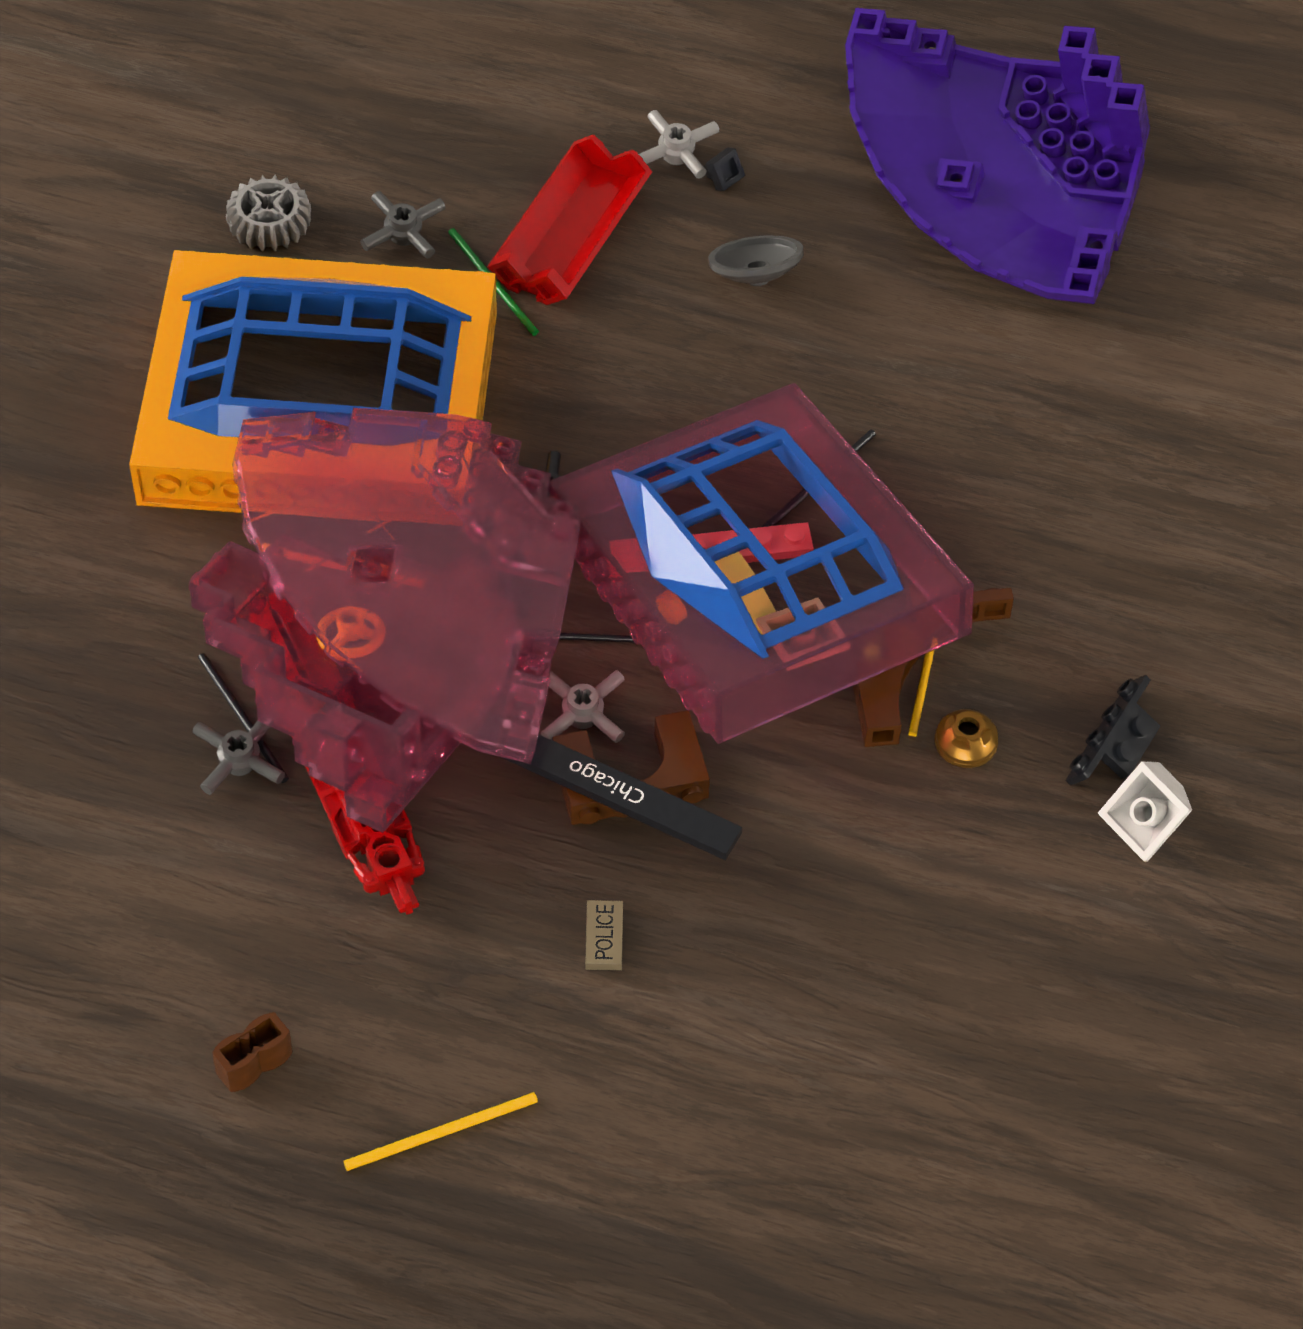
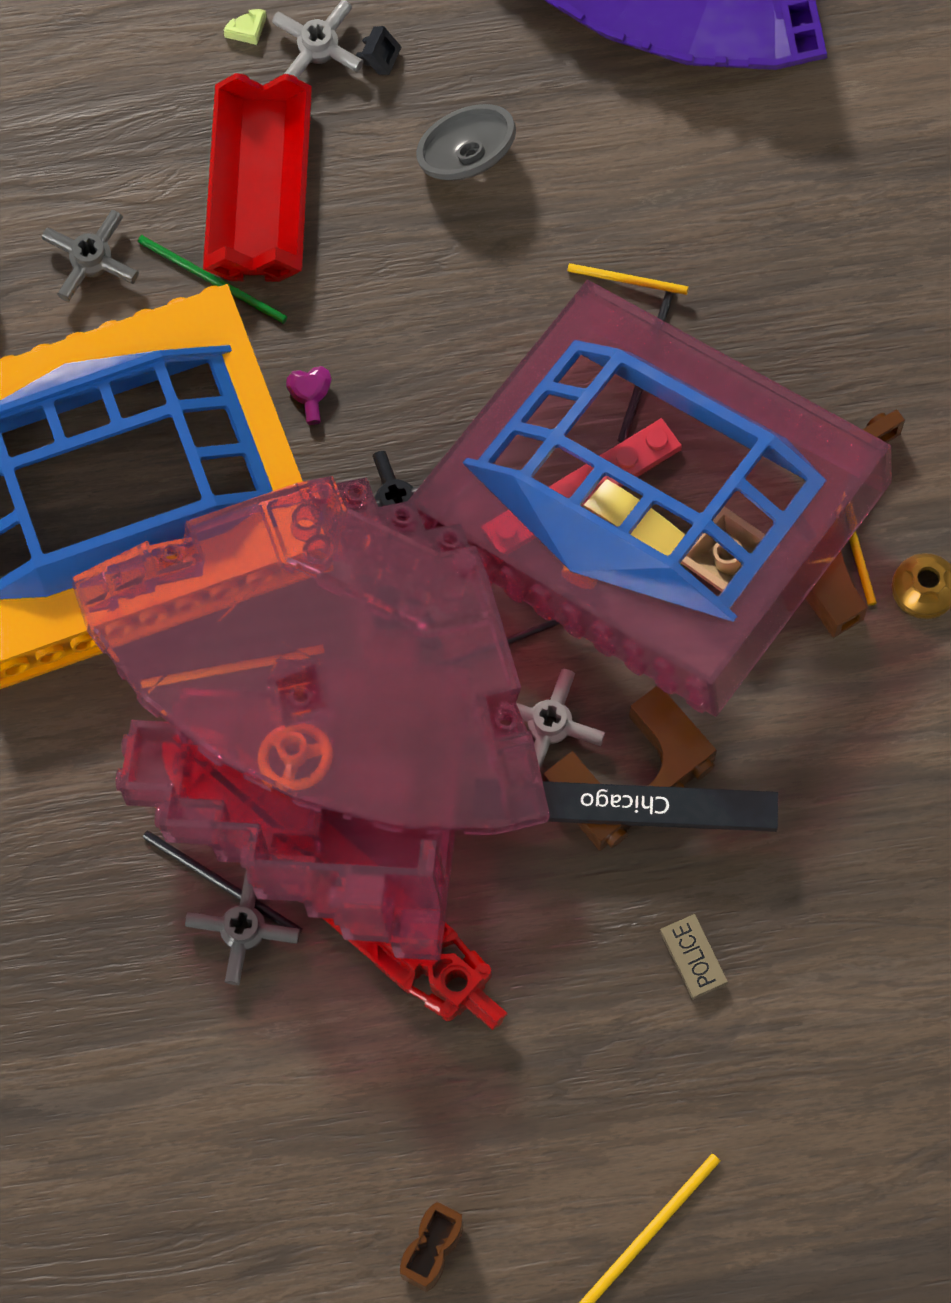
camera: 20 degrees left, 15 degrees up
(525, 388) = (309, 390): none -> magenta rock
(627, 115) = (246, 27): none -> yellowish green tile
(842, 413) = (629, 279): none -> yellow axle

